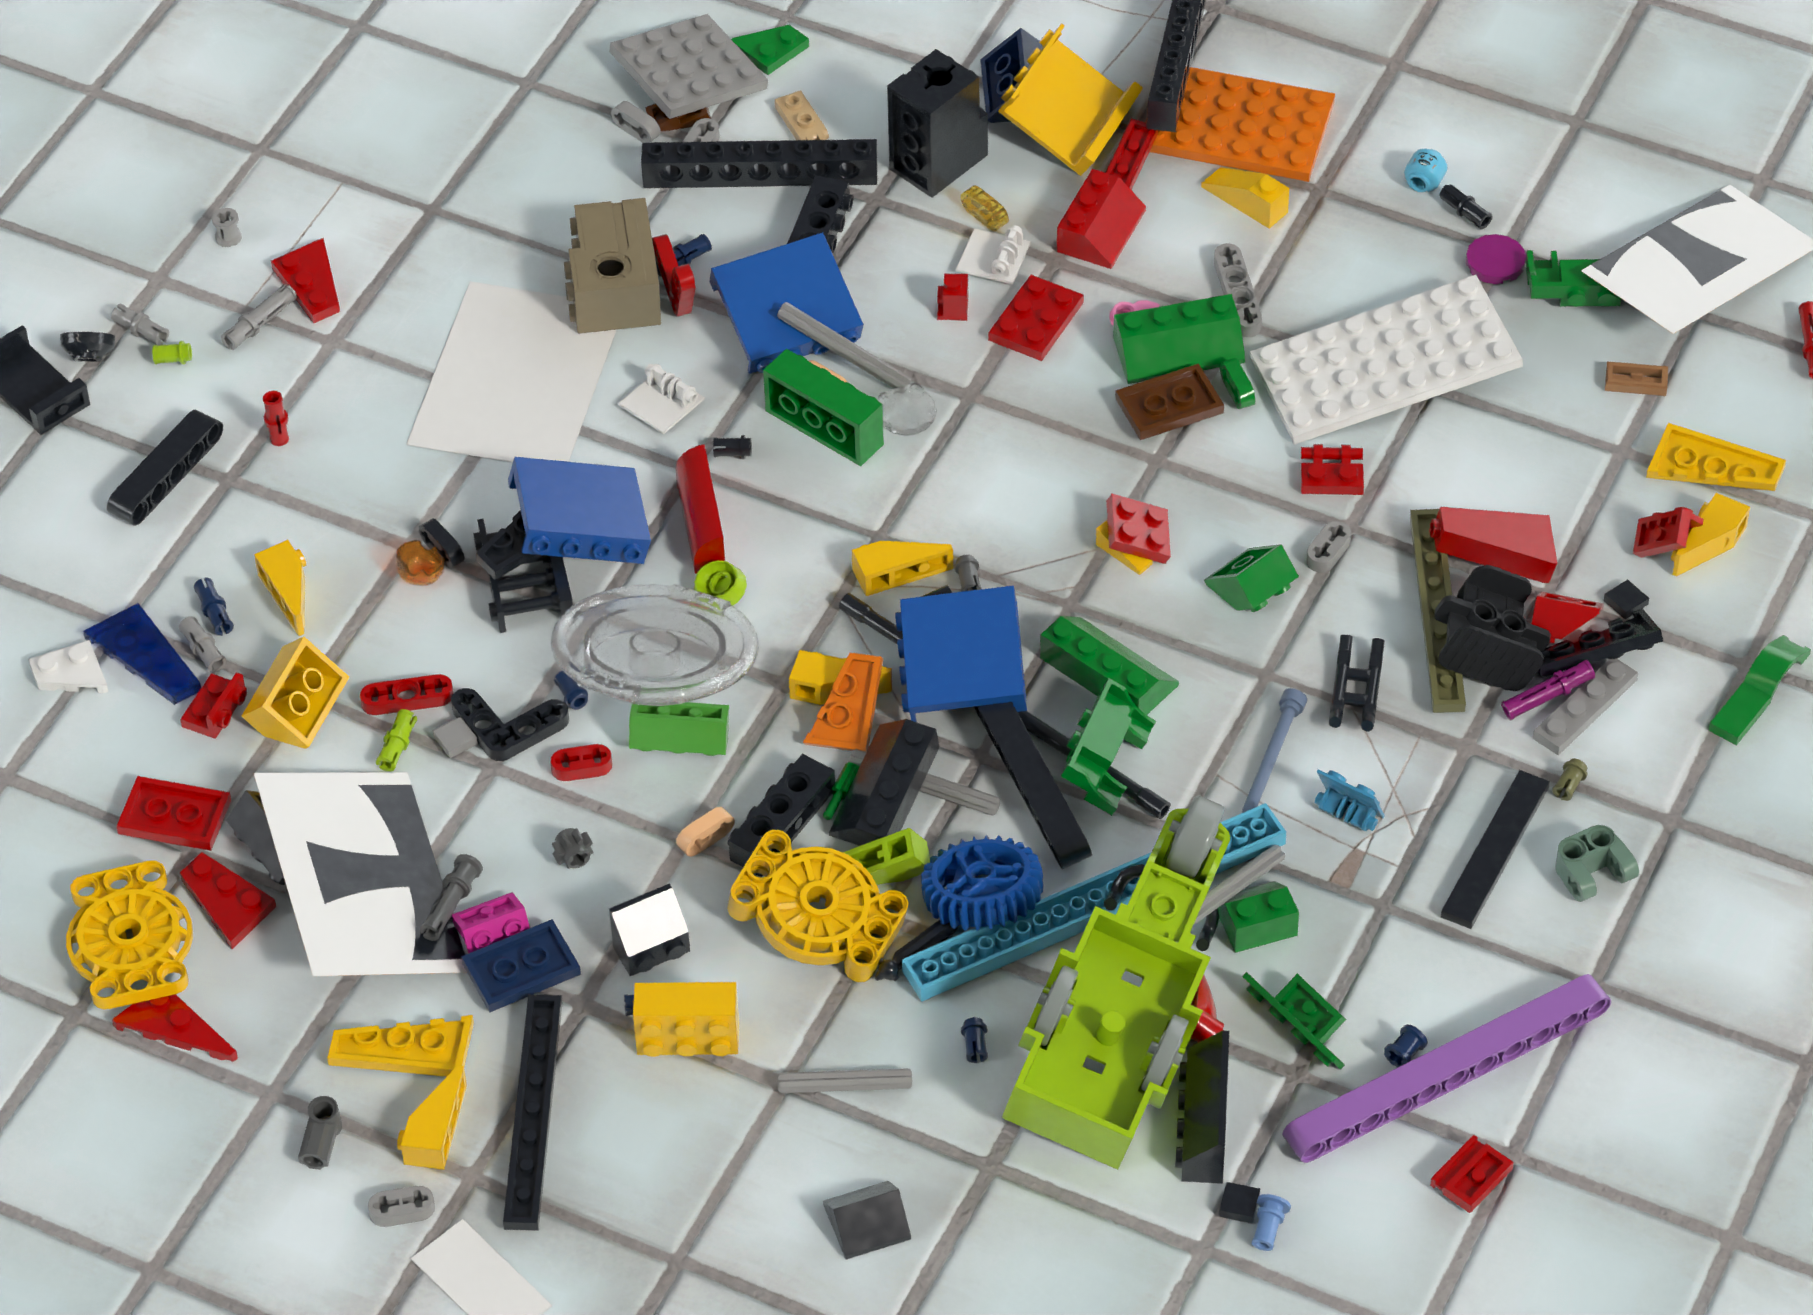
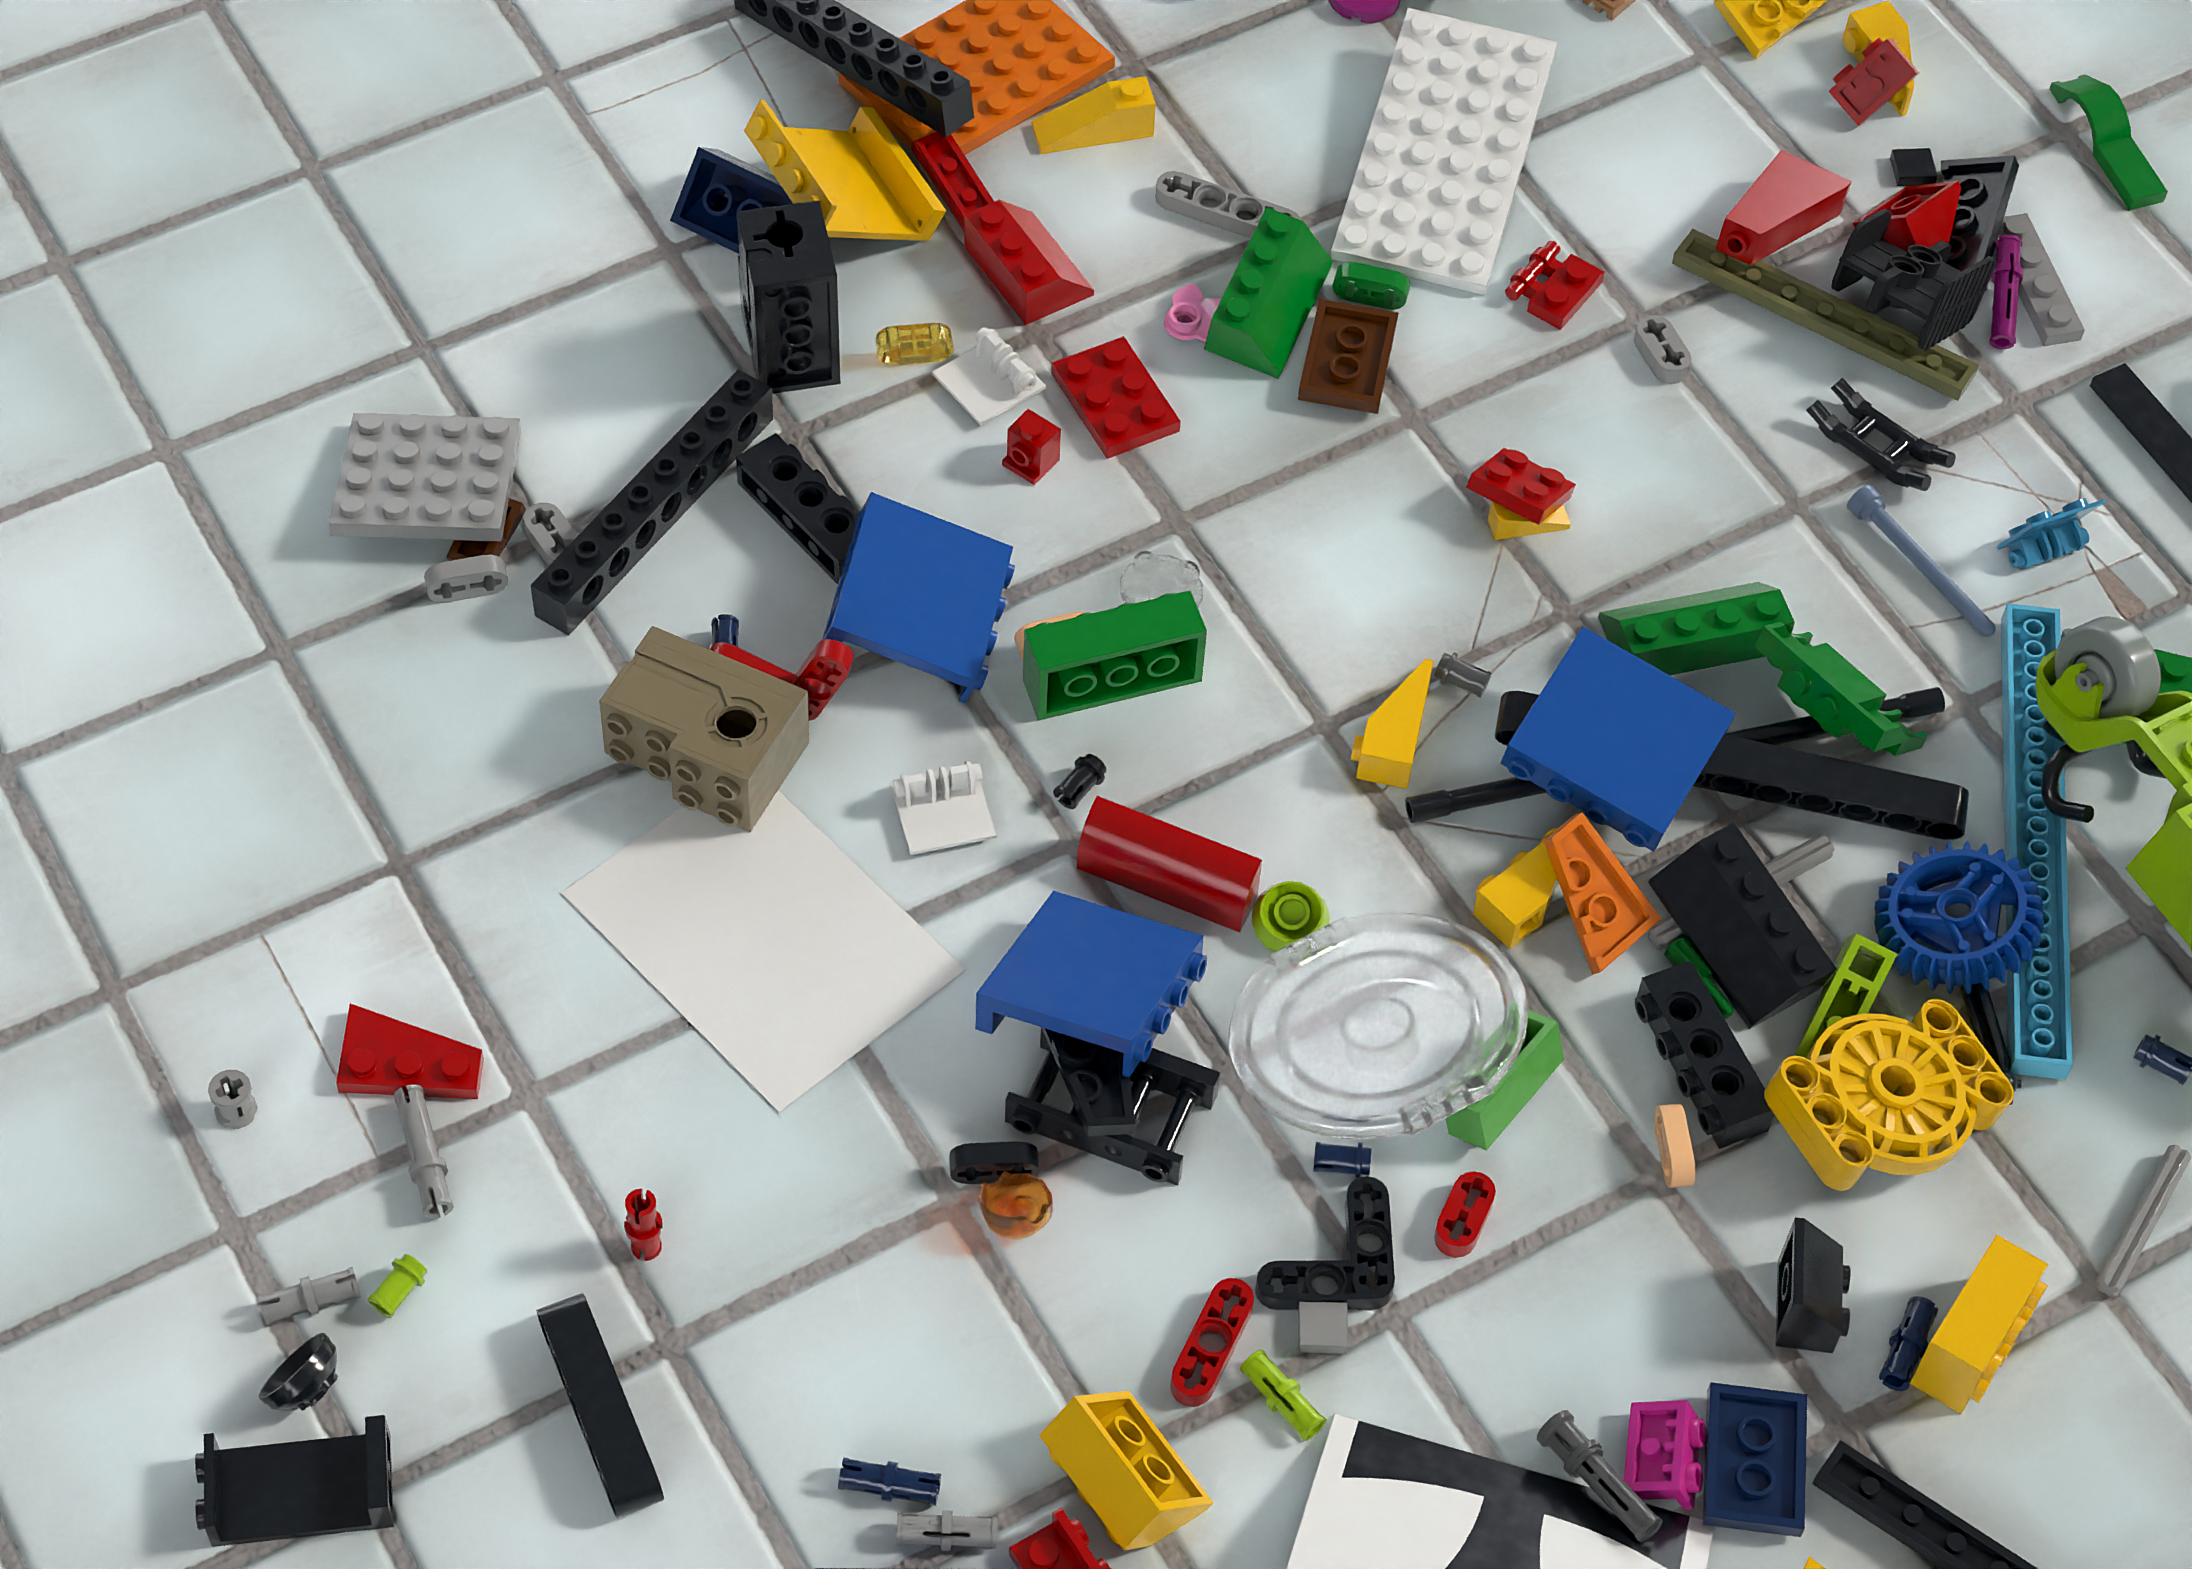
camera: 60 degrees left, 5 degrees up
(284, 577) = (918, 1370): yellow slope -> none
(572, 848) = (1610, 1297): dark grey gear -> none
(772, 47) = (463, 385): green wing -> none
(800, 117) = (613, 427): tan hinge -> none
(842, 346) = (1032, 584): light grey axle -> none
(1253, 577) = (1664, 432): green slope -> none
(1573, 773) = (2133, 347): olive pin -> none

